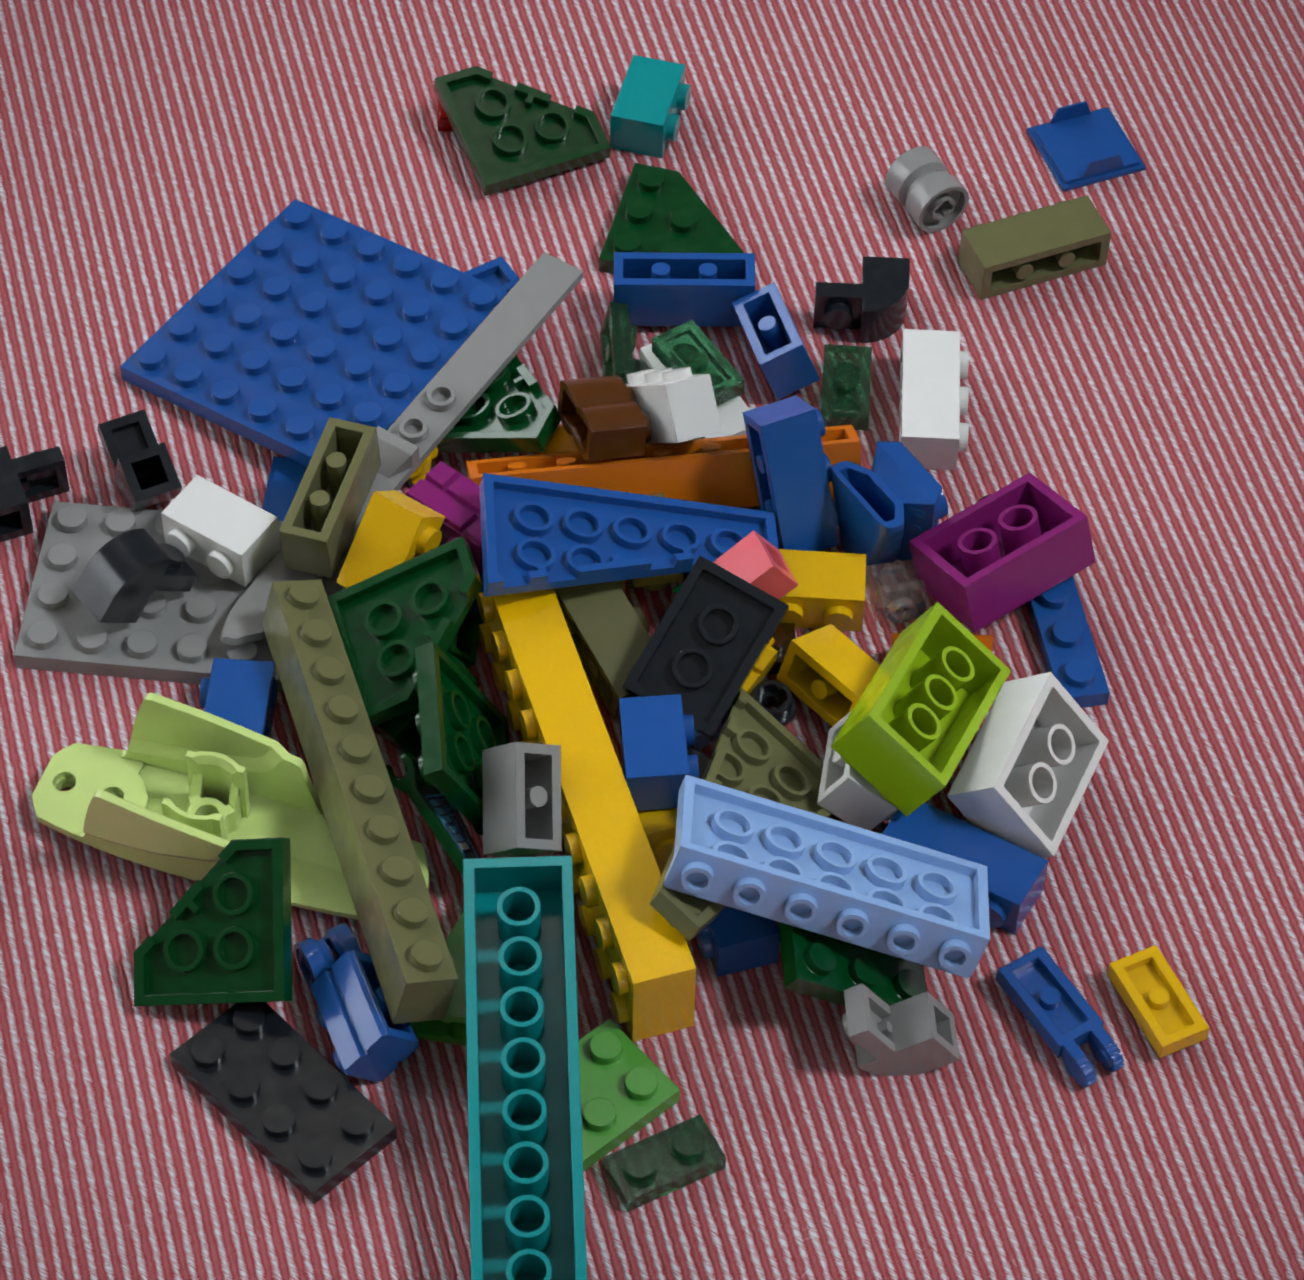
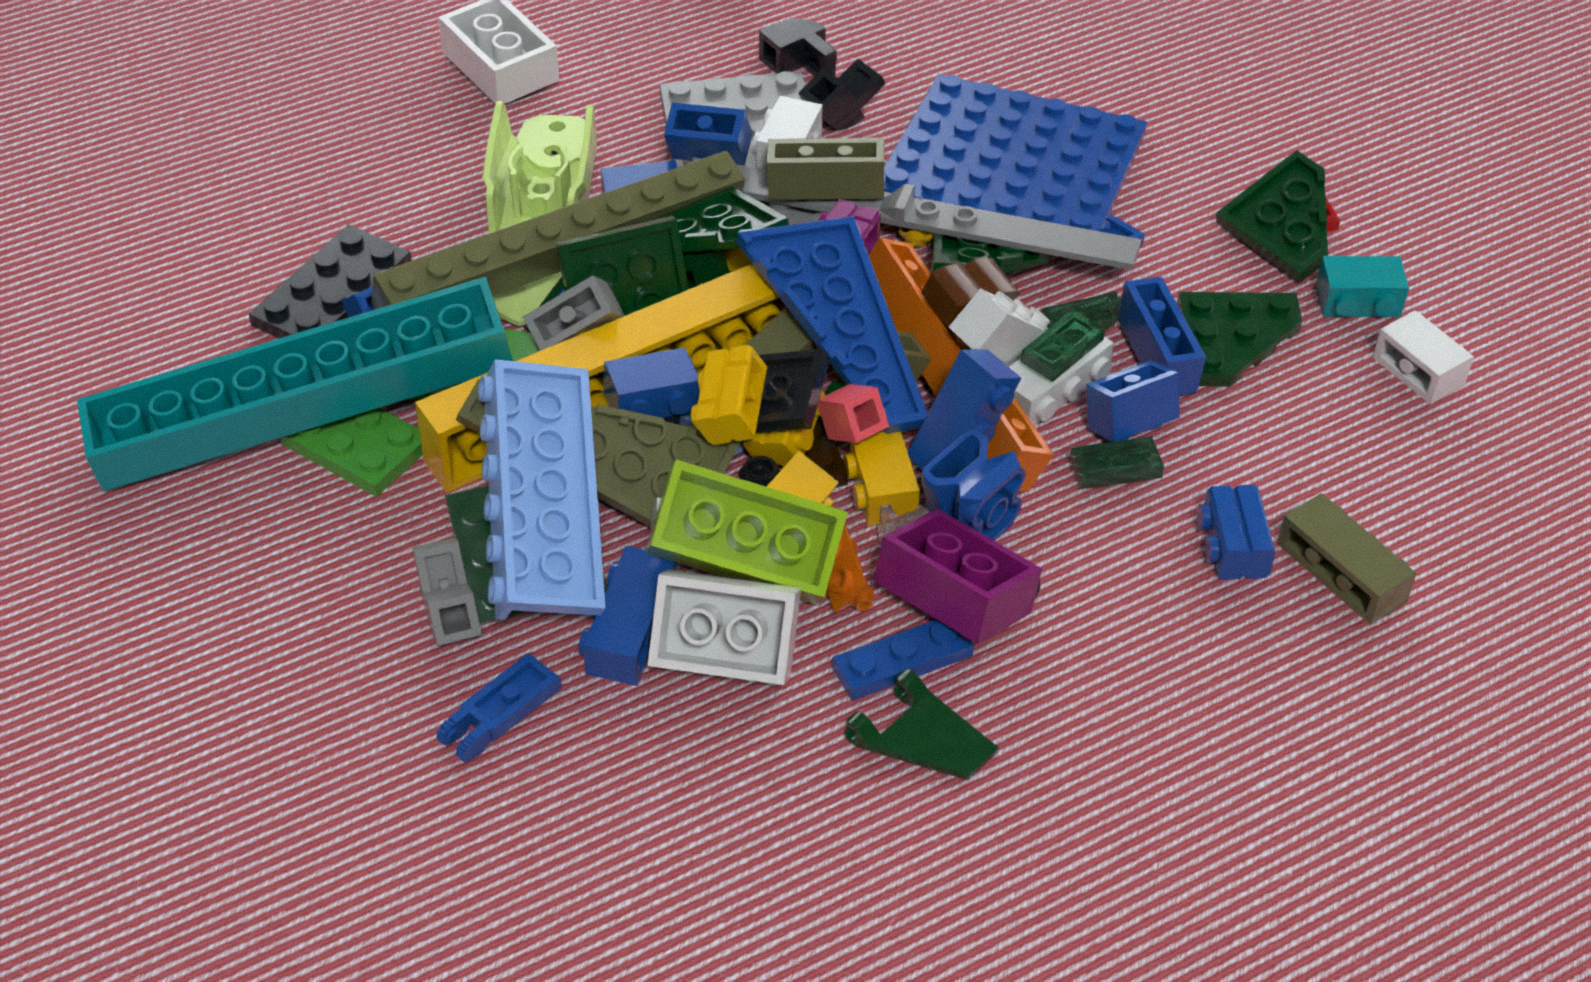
camera: 75 degrees right, 5 degrees down
(127, 573) = (727, 89): black brick -> none
(199, 605) = (706, 131): none -> blue brick
(225, 934) = (430, 209): dark green plate -> none
(390, 534) = (802, 197): yellow brick -> none
(663, 1163) = (313, 493): clear green plate -> none
(719, 669) = (729, 395): none -> yellow brick
(770, 95) = (1423, 357): none -> white brick
(873, 306) = (1218, 460): black brick -> none
(926, 189) = (1368, 471): light grey wheel -> none
(933, 397) = (1127, 515): white brick -> none
(986, 316) = (1236, 532): none -> blue brick
(1084, 146) = (1508, 586): blue piece -> none
(1158, 1001) = (529, 770): yellow plate -> none
(1176, 645) = (925, 734): none -> dark green flag

